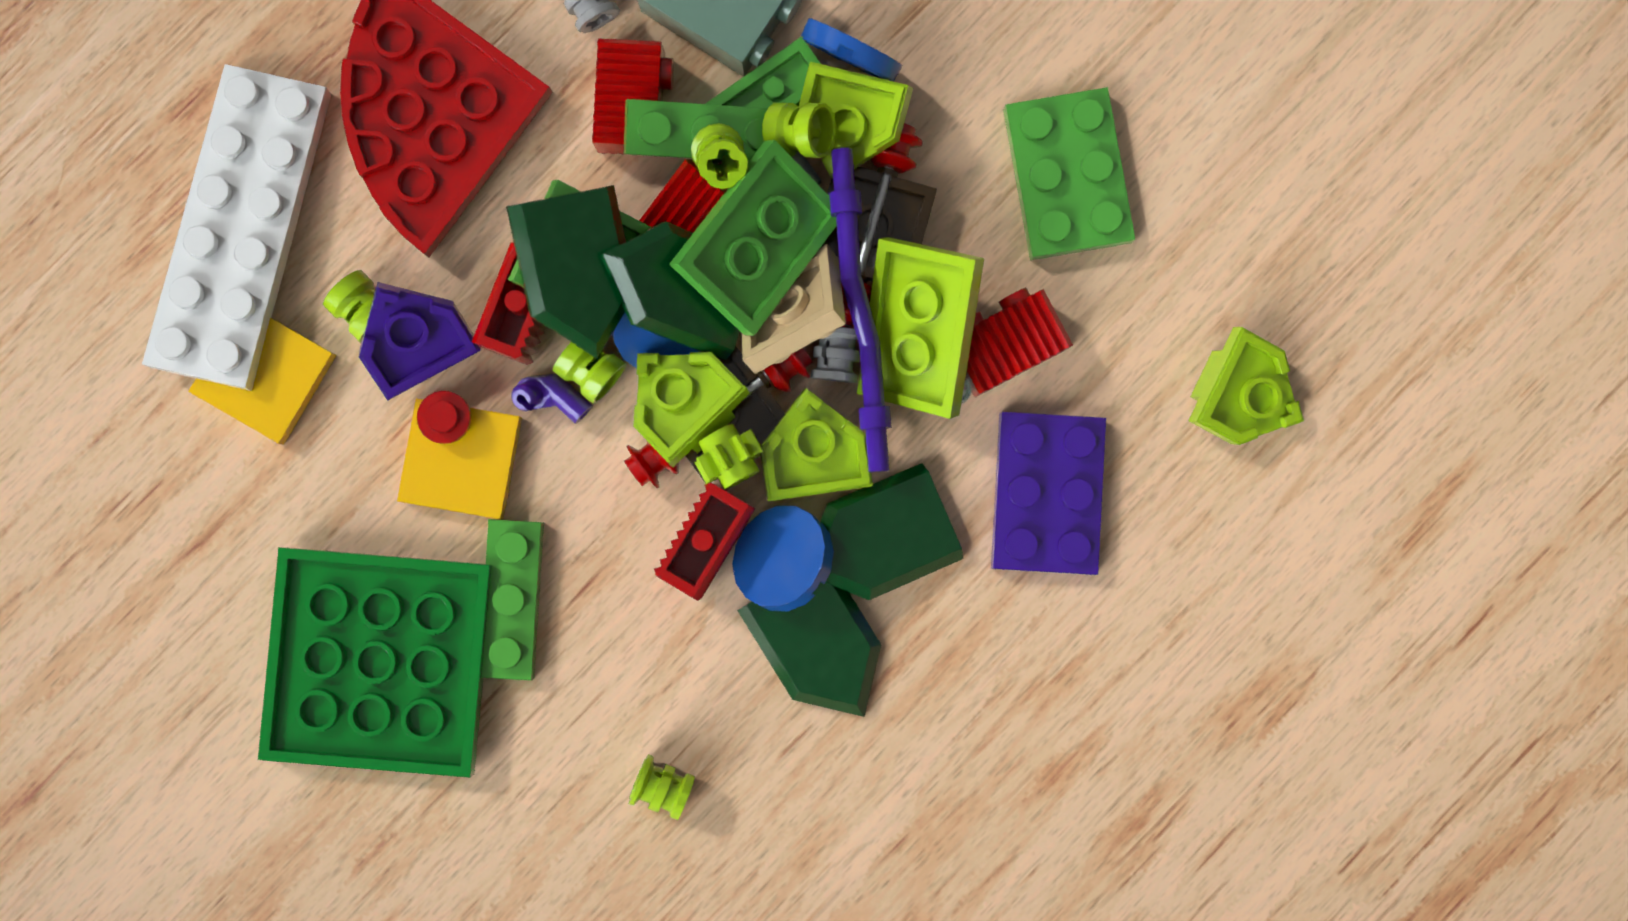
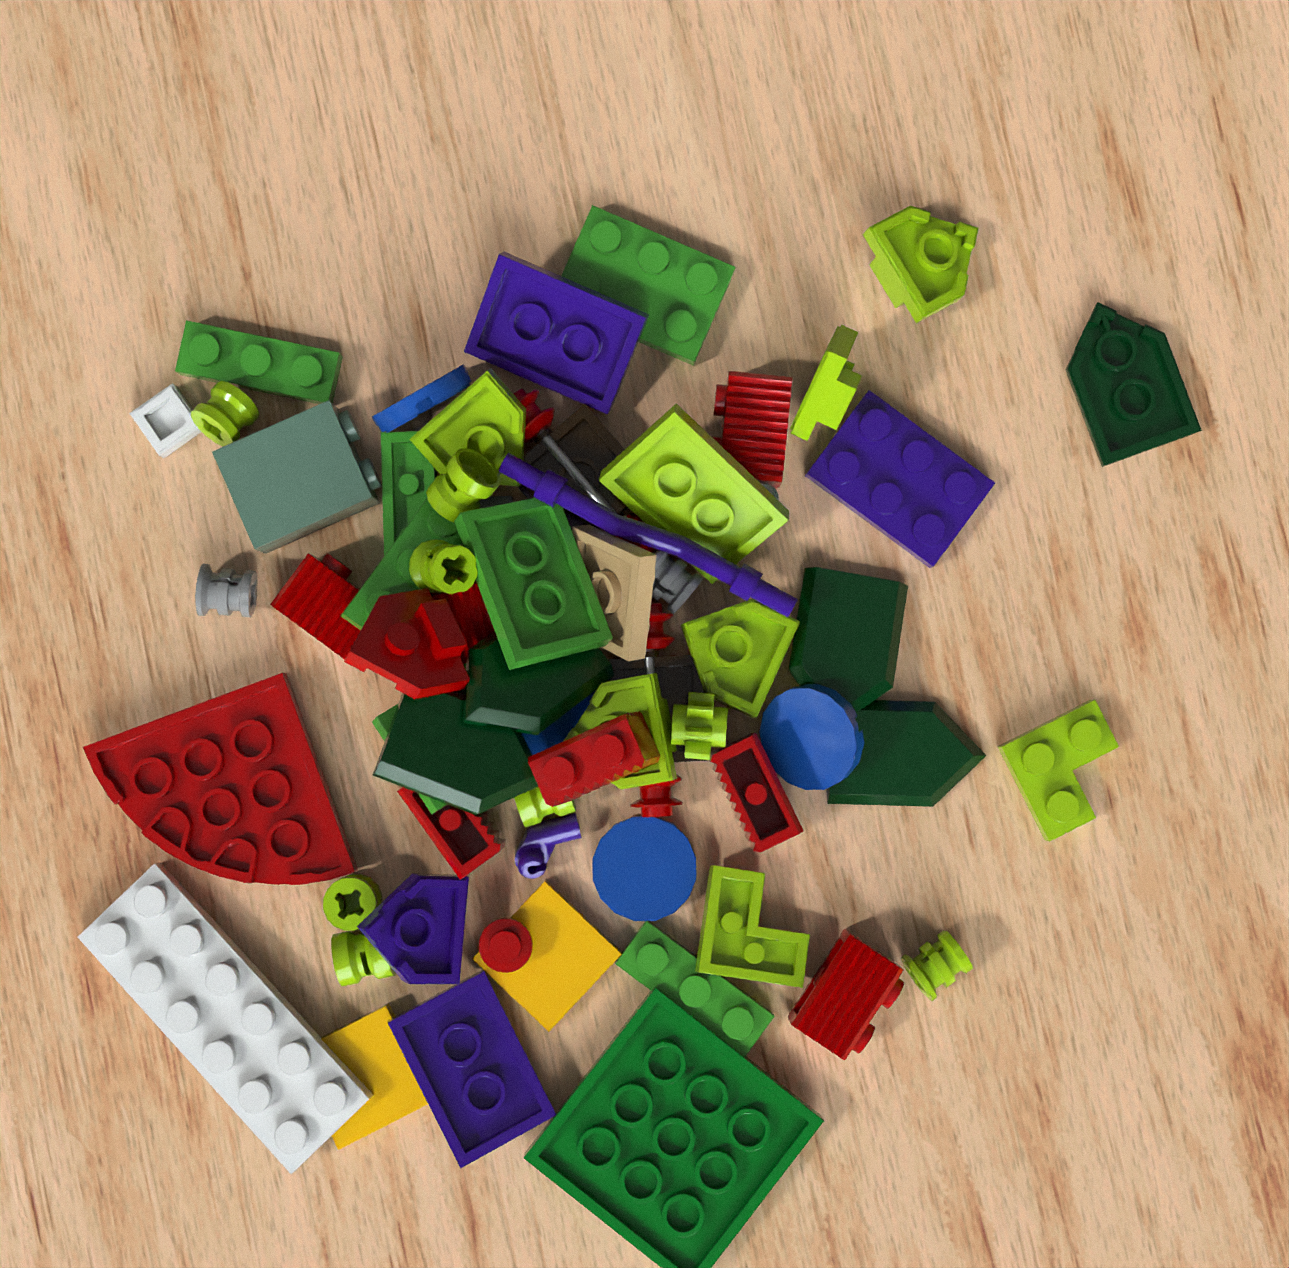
camera: 55 degrees left, 0 degrees up
(324, 456) = (471, 1068): none -> dark purple plate
(410, 271) = (359, 893): none -> lime wheel
(569, 608) = (731, 937): none -> lime plate
(583, 492) = (644, 868): none -> blue tile
(586, 729) = (847, 995): none -> red brick
(636, 169) = (412, 644): none -> red plate
(642, 384) = (594, 758): none -> red brick
(891, 769) = (1045, 762): none -> lime plate
(980, 125) = (555, 332): none -> dark purple plate
(1086, 380) = (830, 387): none -> lime plate
(1253, 635) = (1128, 387): none -> dark green tile

